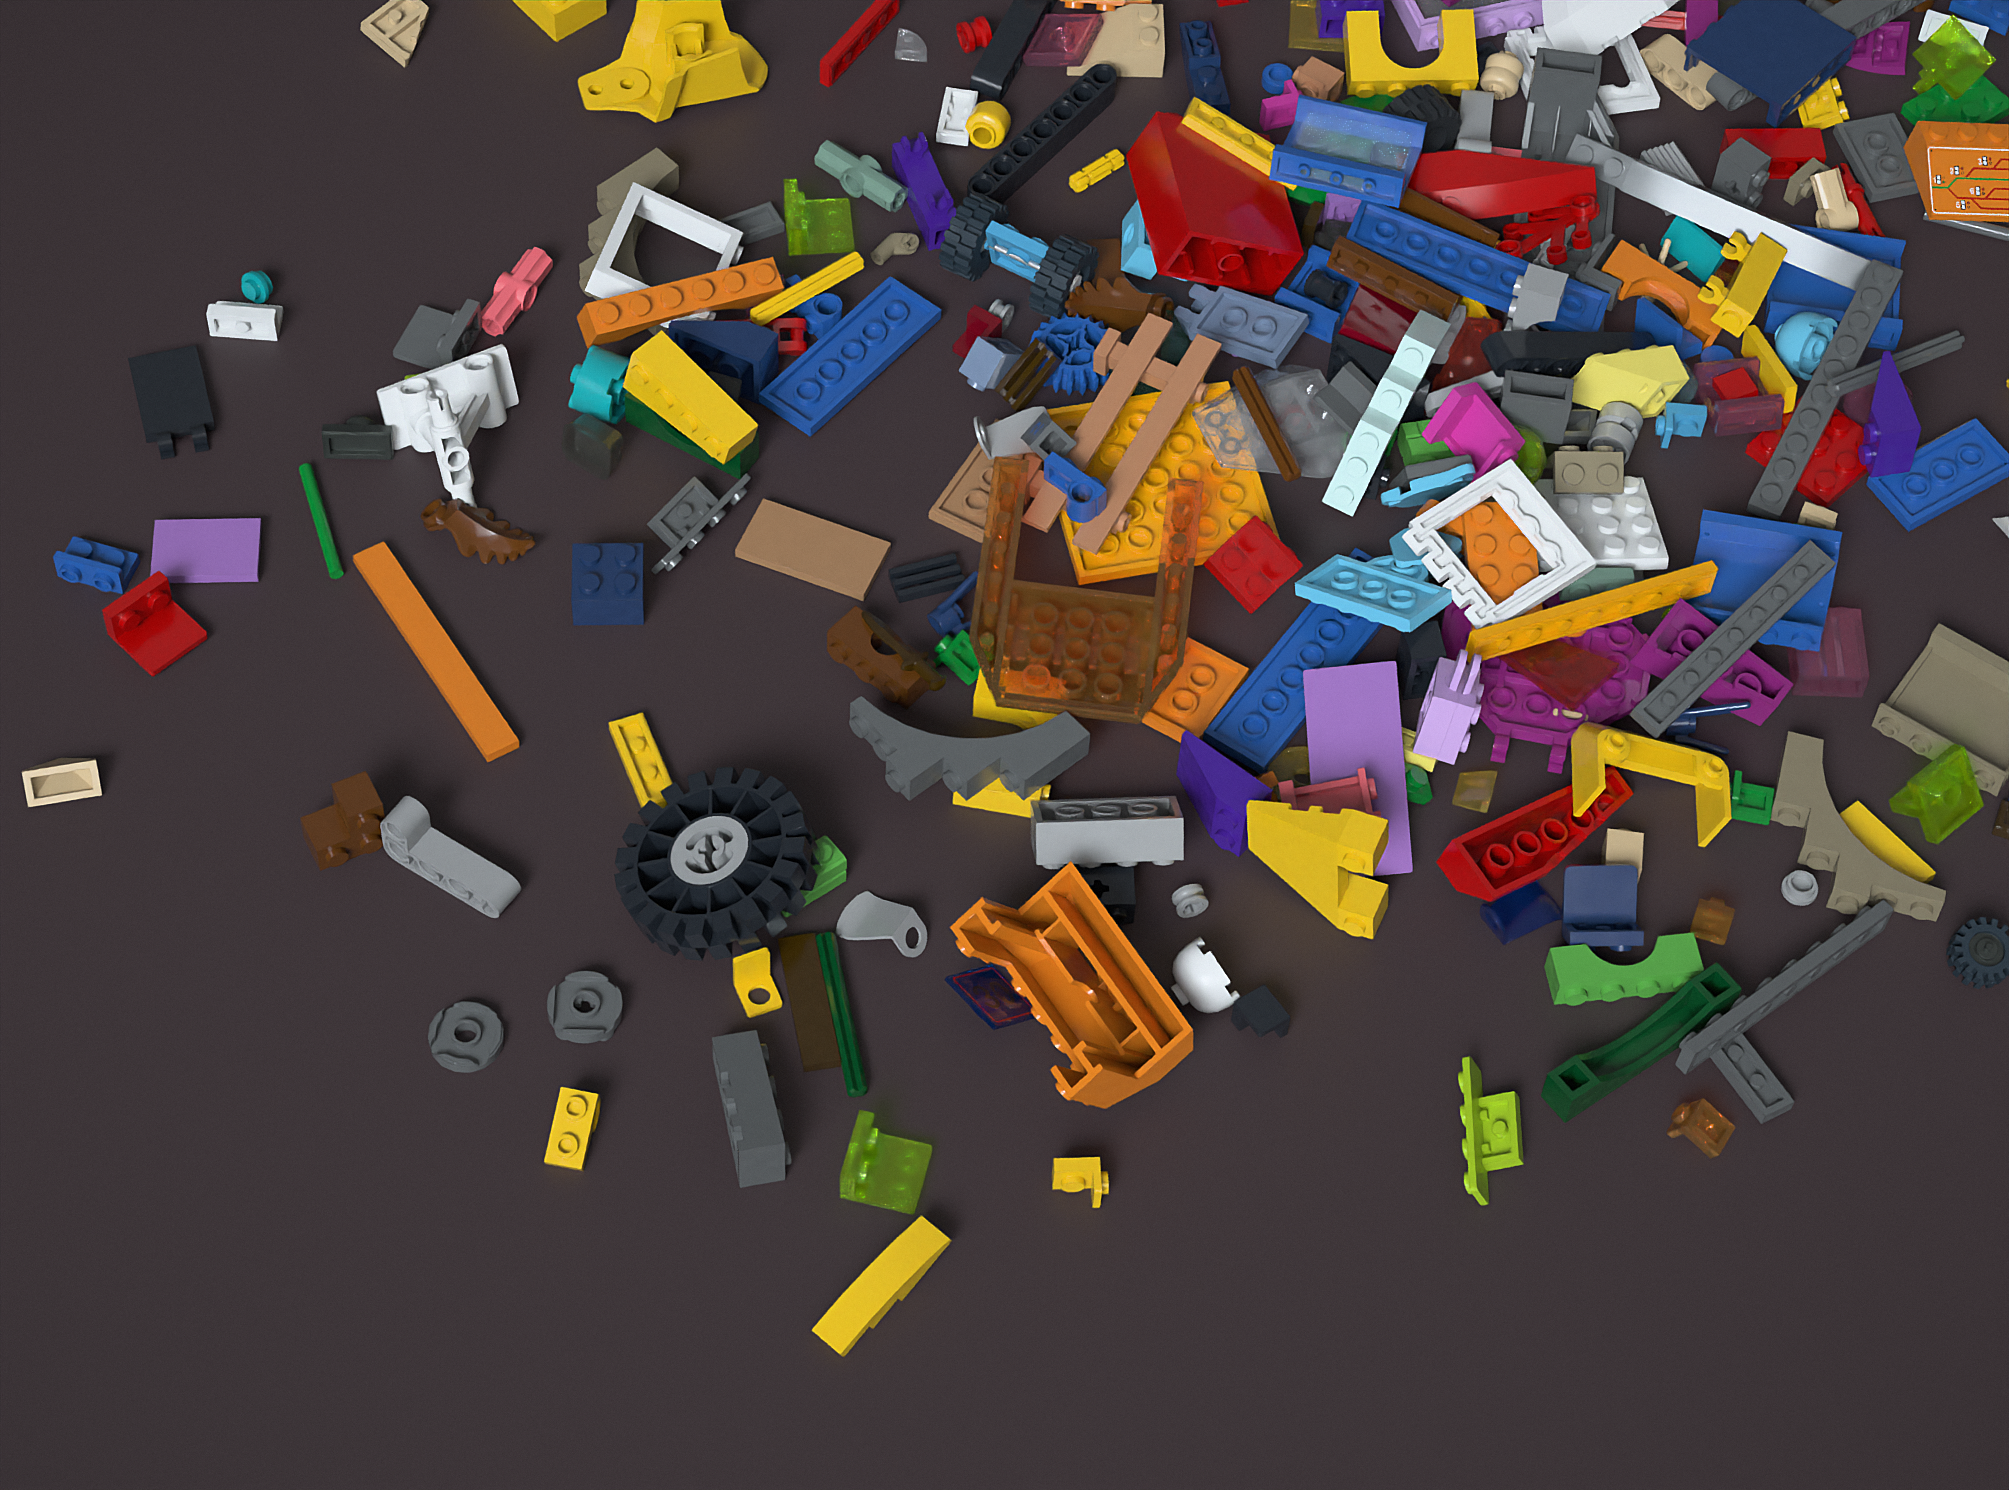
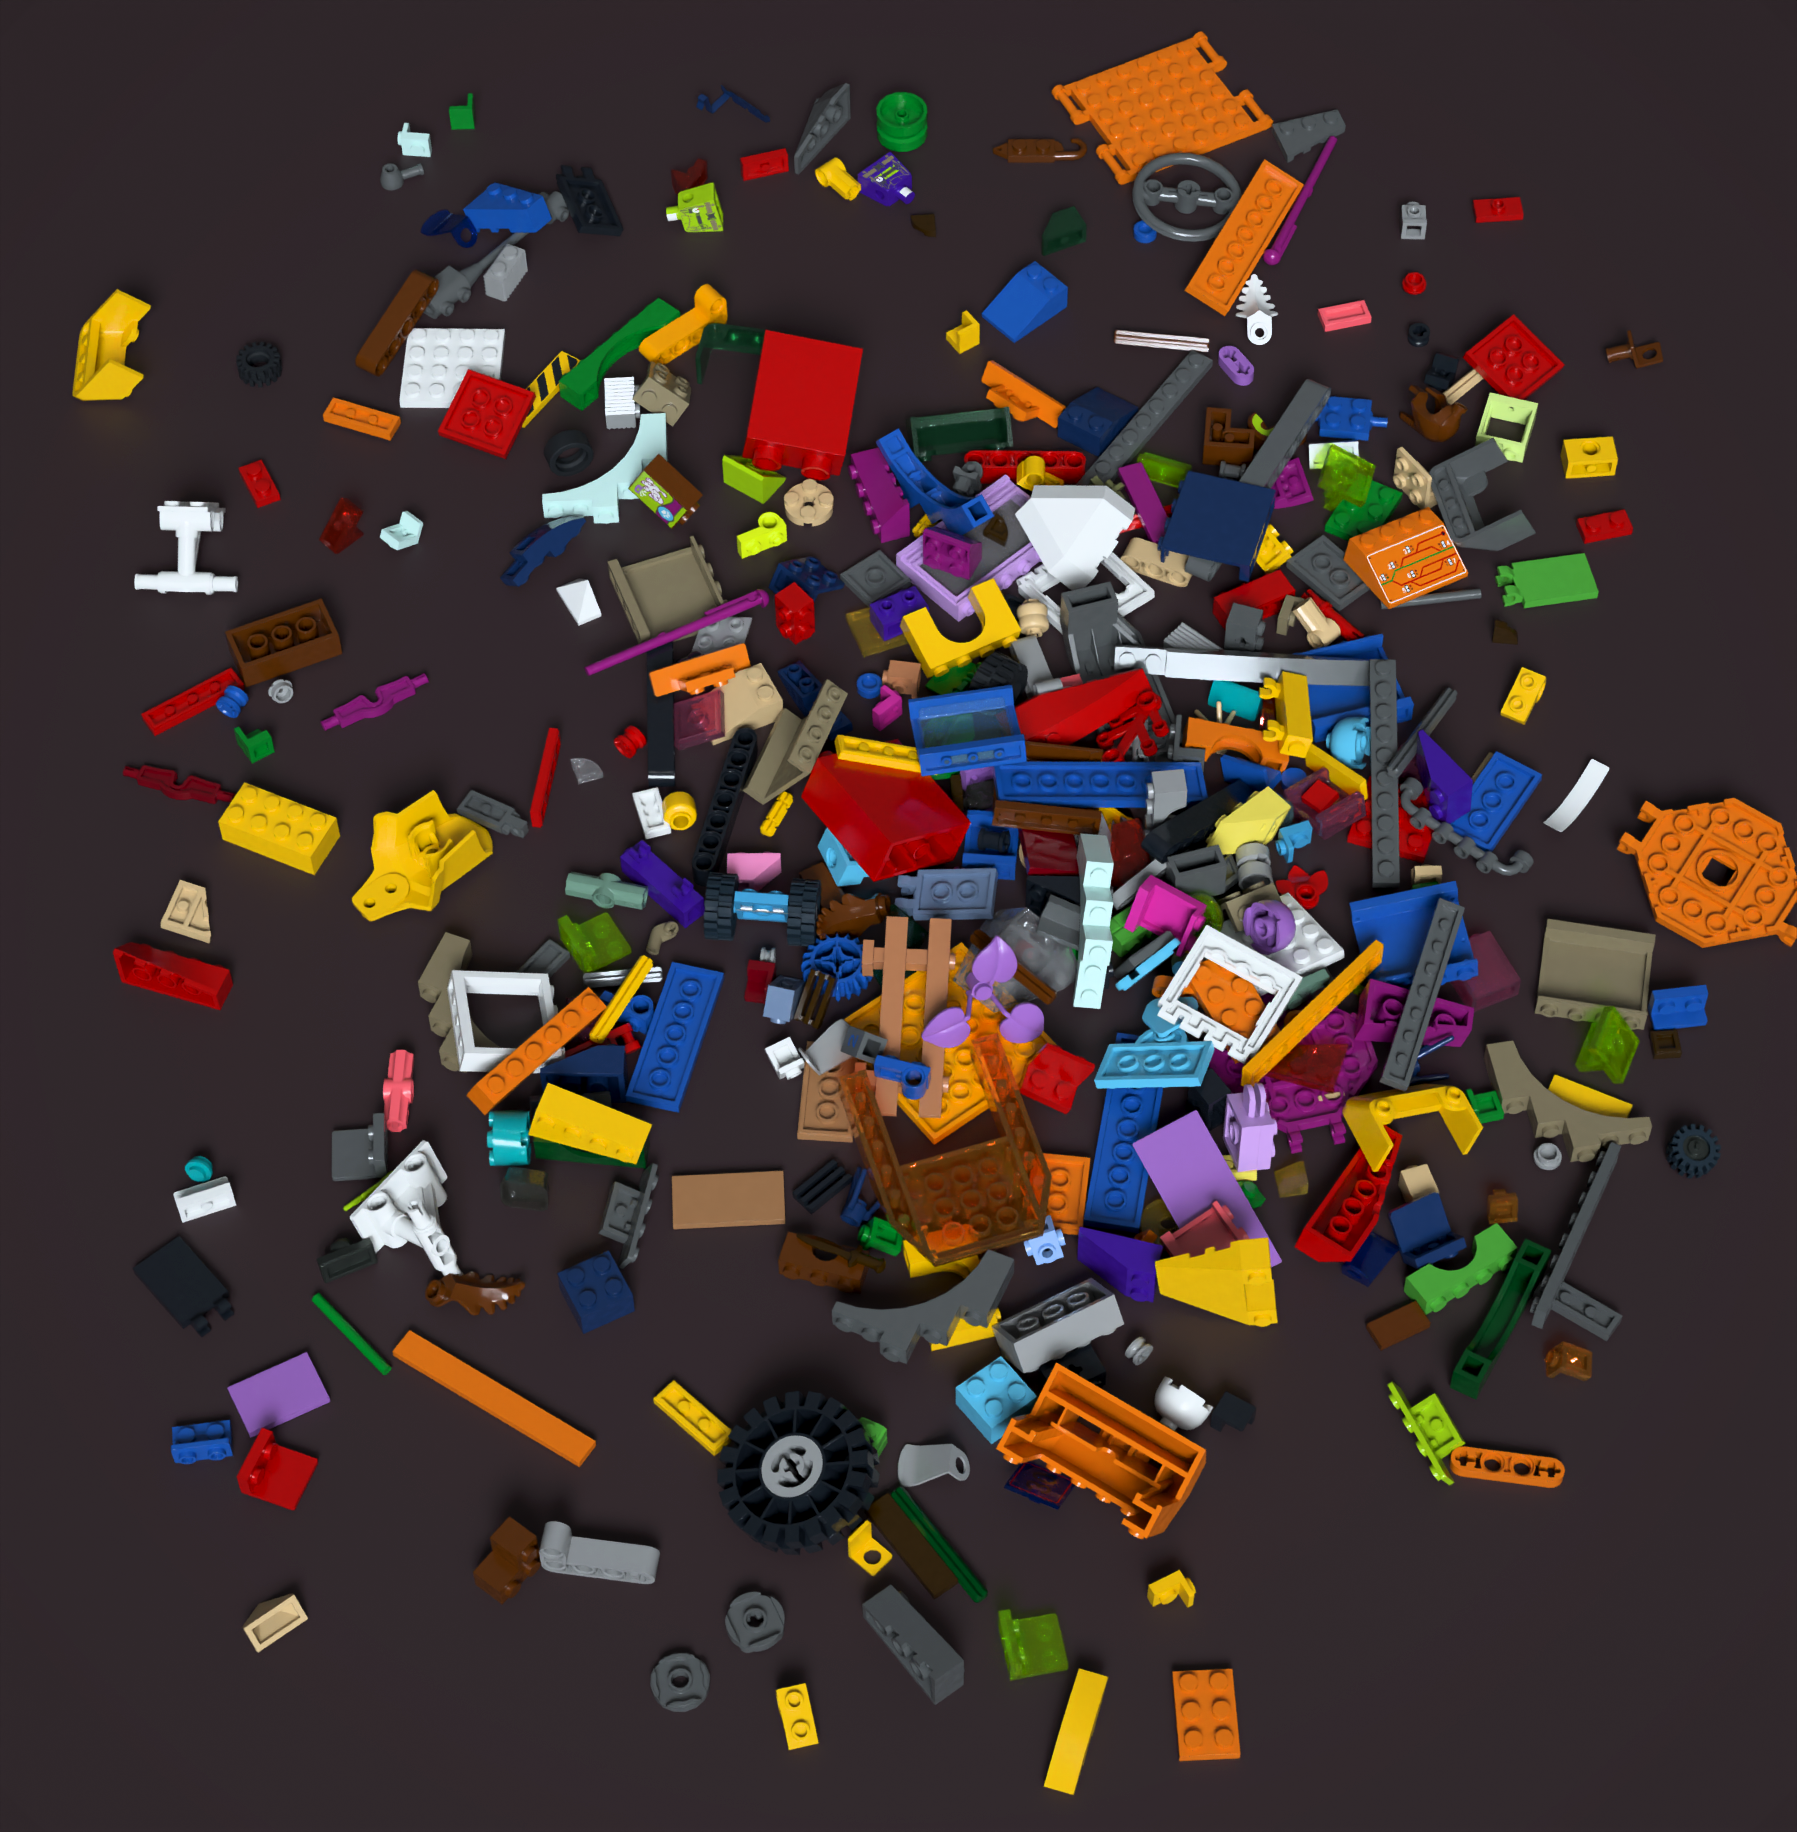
camera: 20 degrees left, 0 degrees up
(343, 79) = (173, 974): none -> red wedge
(781, 52) = (492, 814): none -> dark grey hinge
(808, 265) = (616, 977): none -> dark grey axle
(959, 426) = (785, 1059): none -> white bracket
(991, 871) = (994, 1398): none -> medium azure brick
(1038, 215) = (754, 869): none -> bright pink slope
(1046, 1335) = (1205, 1714): none -> orange plate
(1145, 740) = (1047, 1247): none -> light blue brick
(1150, 94) = (794, 745): none -> dark tan panel
(1228, 401) = (992, 964): none -> medium lavender plant
(1515, 1001) = (1398, 1325): none -> reddish brown tile
(1557, 1219) = (1507, 1462): none -> orange beam
(1592, 495) = (1269, 925): none -> medium lavender cylinder
(1664, 479) = (1301, 885): none -> red plate
(1881, 507) = (1465, 846): none -> dark grey bar

